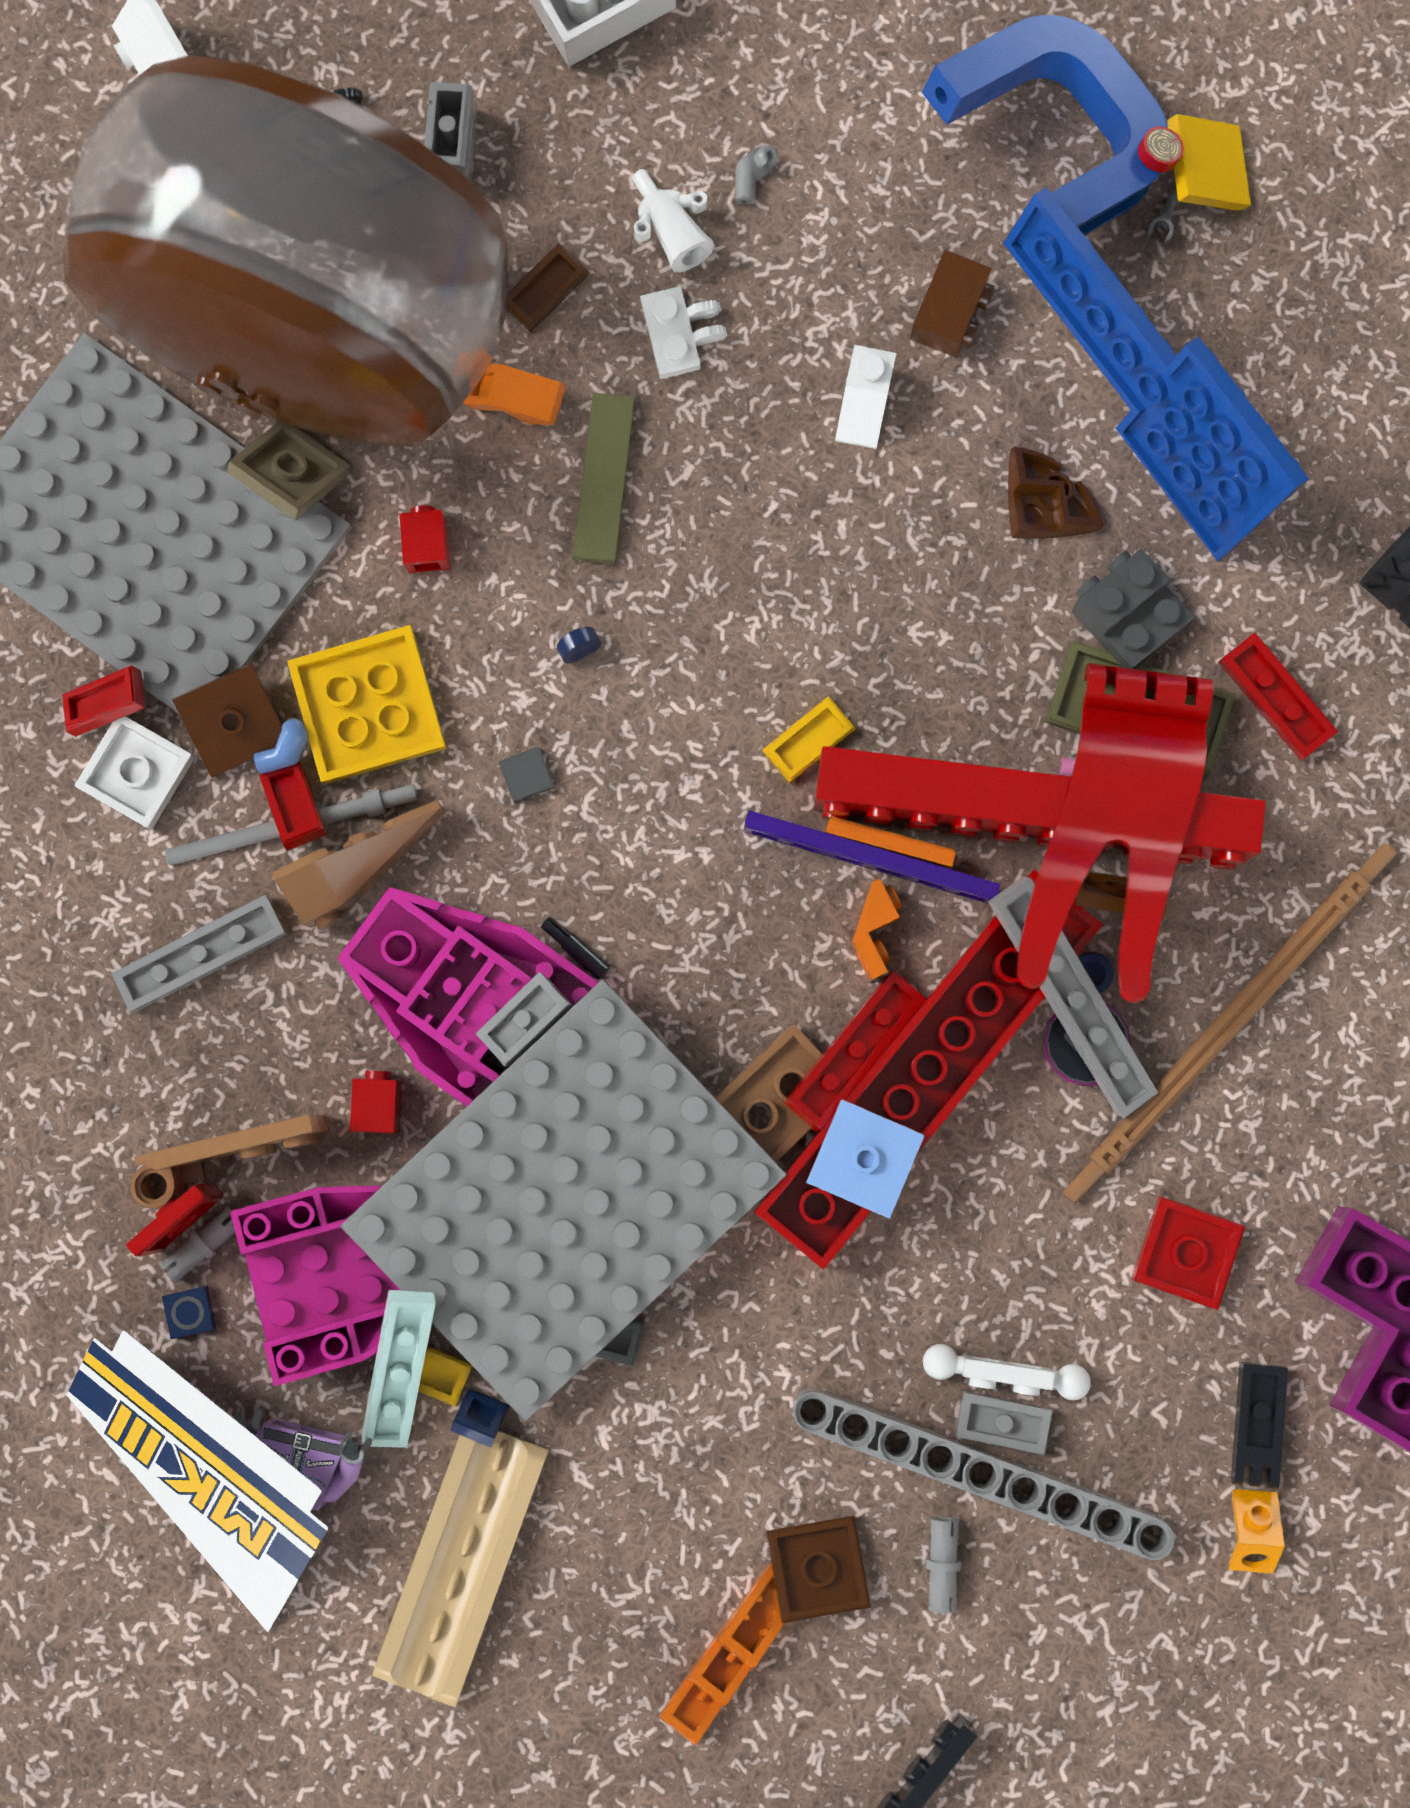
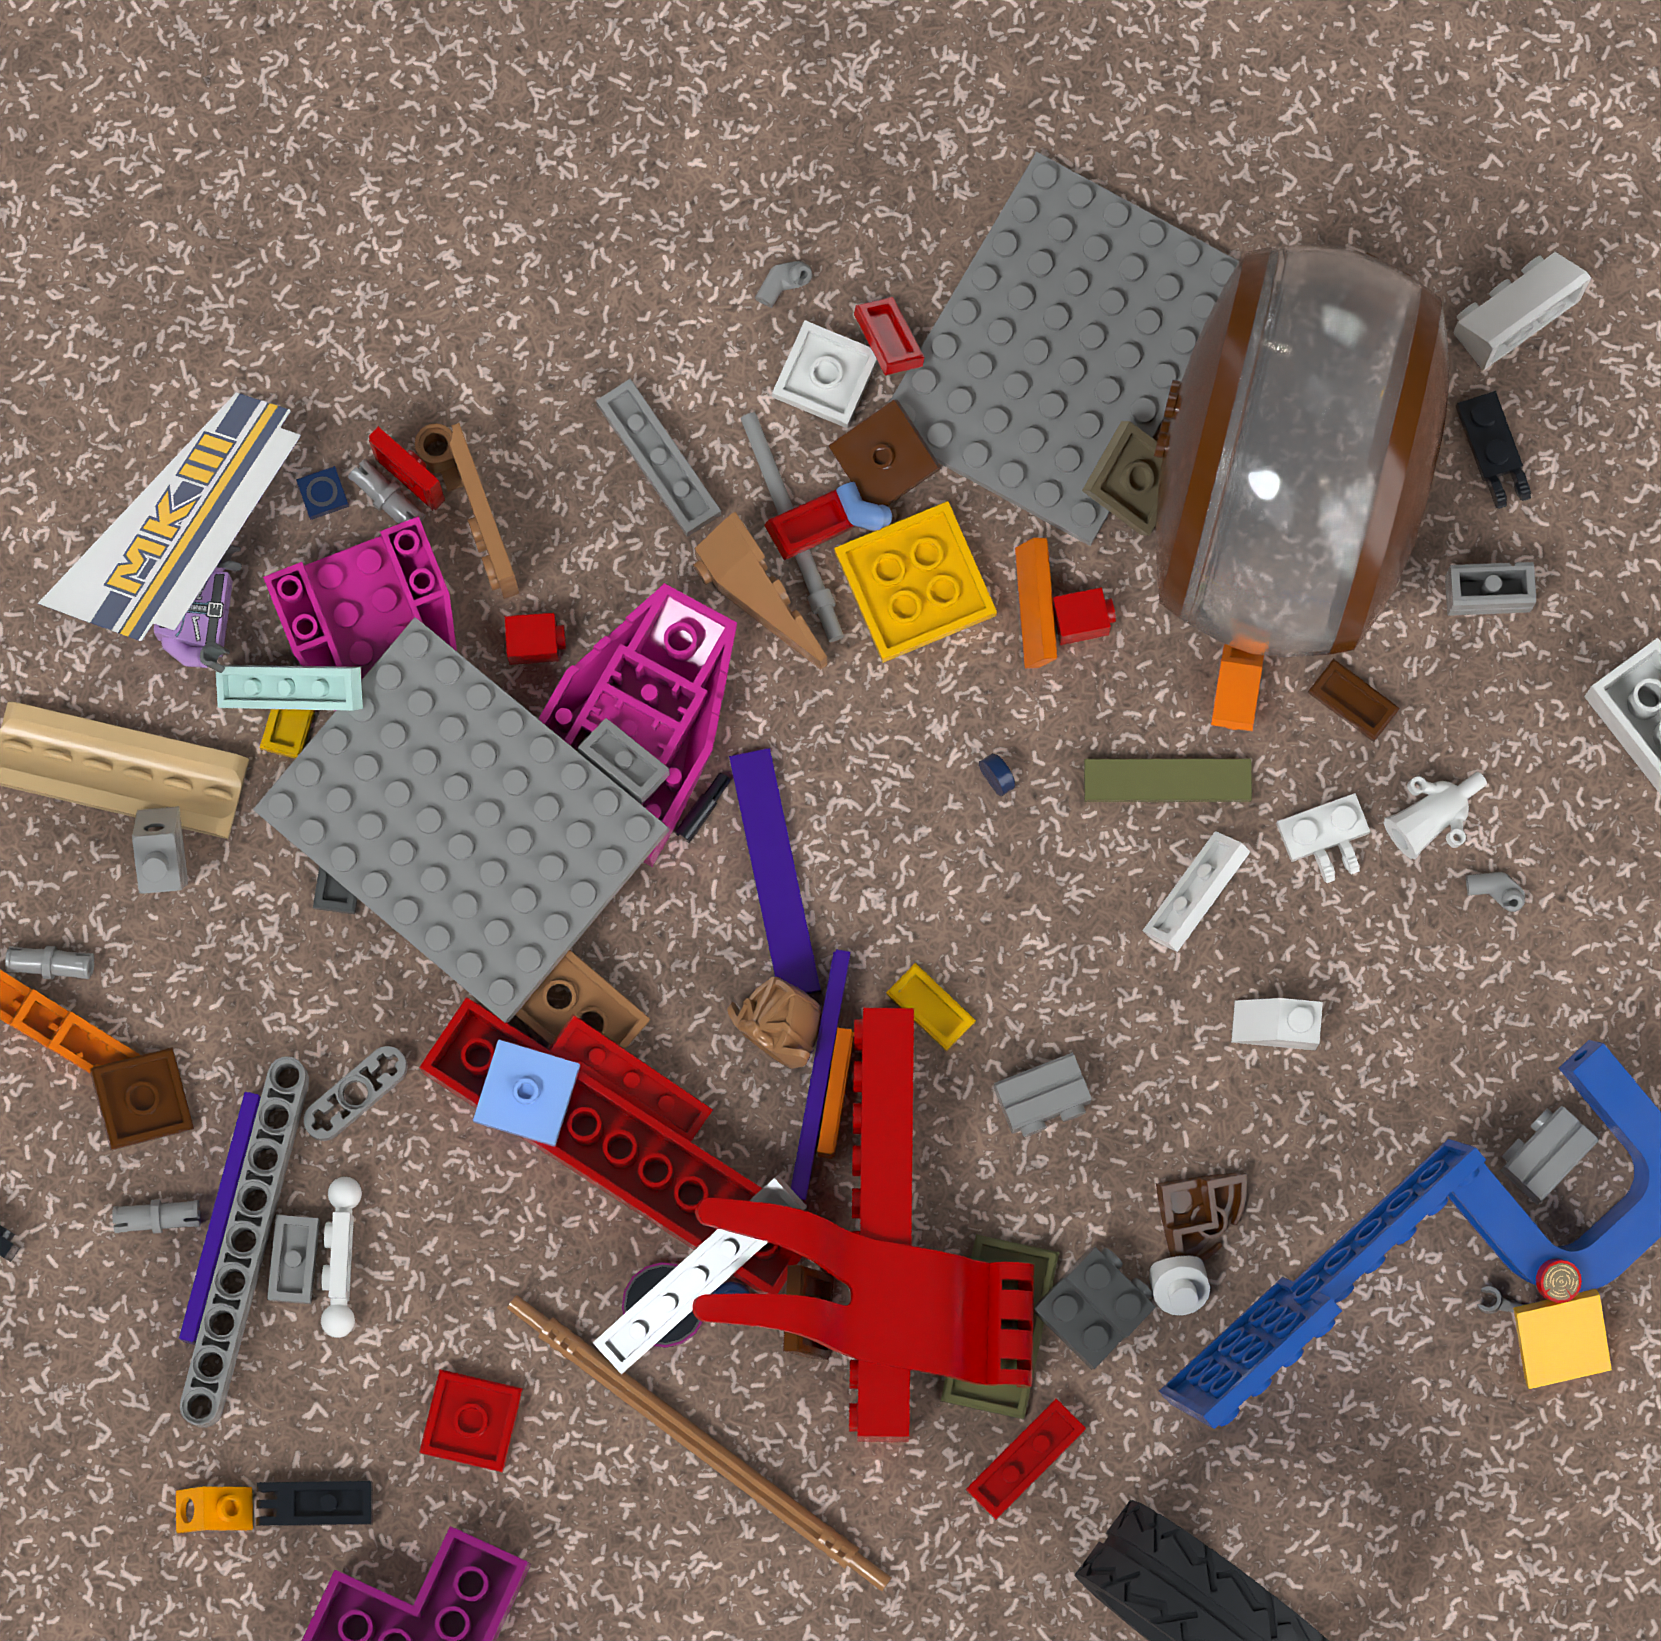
camera: 75 degrees right, 5 degrees down
(25, 804) = (782, 278): none -> light grey arm
(405, 585) = (1036, 603): none -> orange tile
(479, 1418) = (251, 770): dark blue tile -> none
(526, 774) = (865, 740): dark grey tile -> none
(566, 1527) = (161, 853): none -> light grey torso
(653, 882) = (774, 869): none -> dark purple tile
(660, 1655) = (49, 962): none -> light grey pin
(722, 461) = (1196, 891): none -> white plate
(813, 889) = (779, 1021): none -> medium nougat piece
(863, 1360) = (323, 1104): none -> light grey beam
(876, 914) = (767, 1087): orange slope -> none
(913, 636) = (1042, 1095): none -> light grey brick
(951, 304) = (1383, 1098): reddish brown brick -> none
(955, 1497) = (219, 1218): none -> dark purple tile
(1023, 153) = (1548, 1154): none -> light grey brick
(1119, 524) = (1179, 1284): none -> white piece

